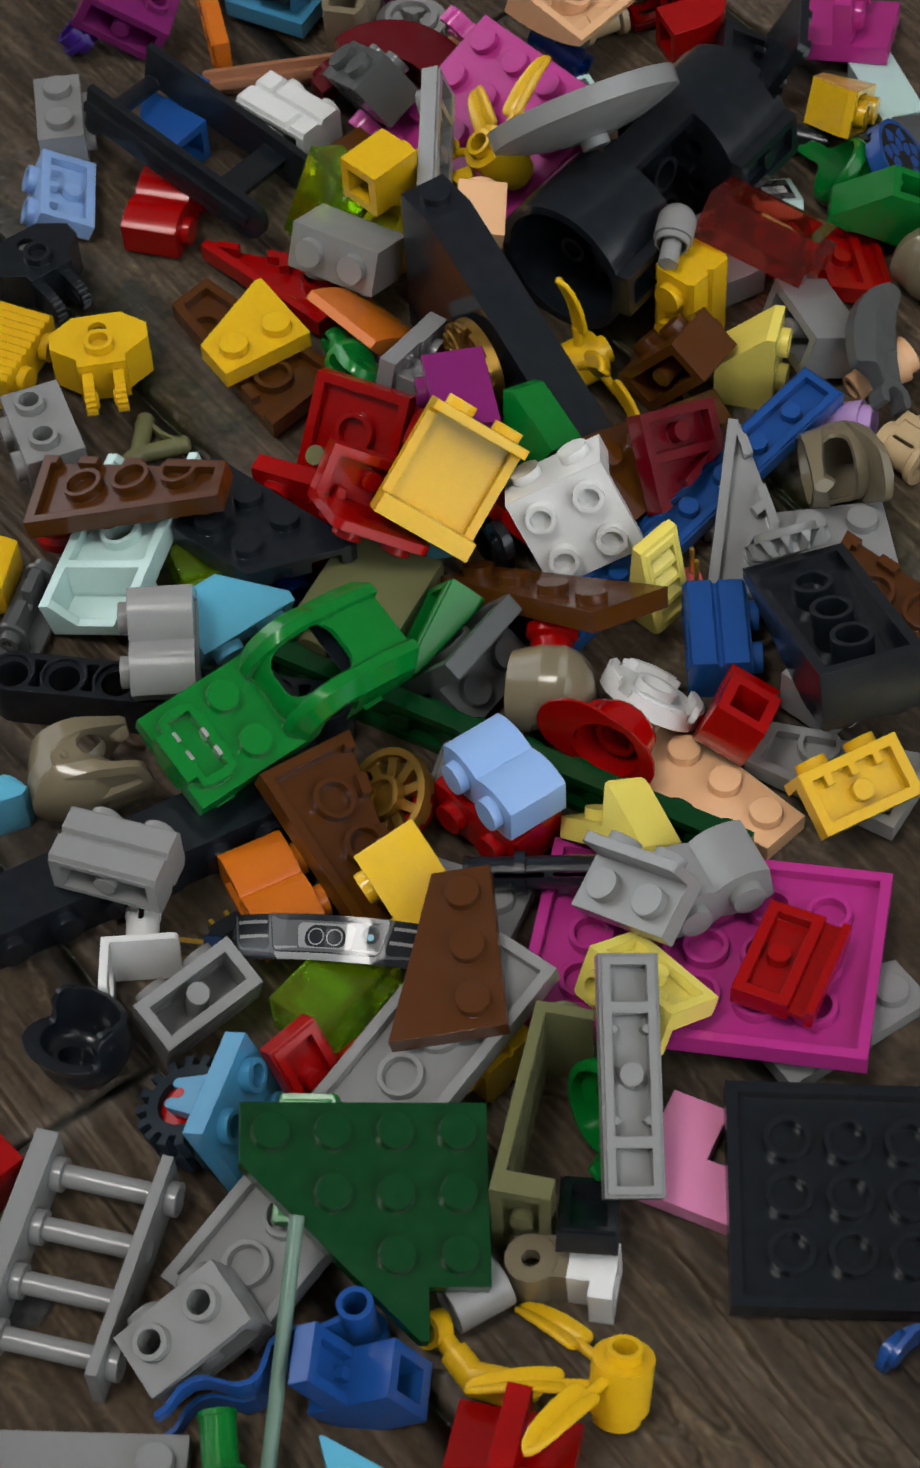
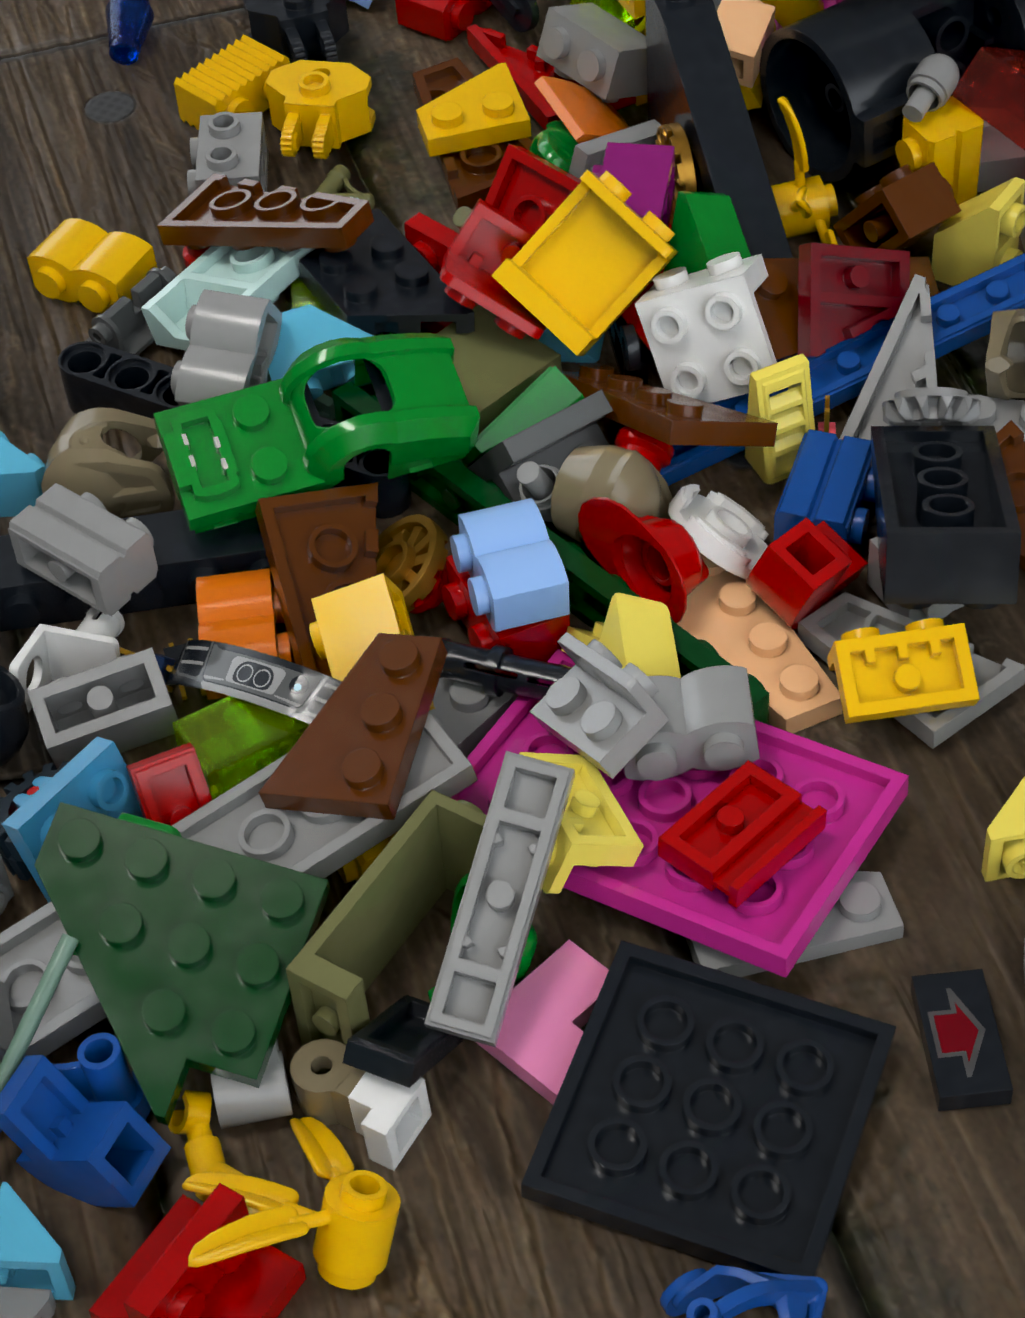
camera: 20 degrees right, 5 degrees down
(488, 691) = (537, 483): none -> light grey cylinder

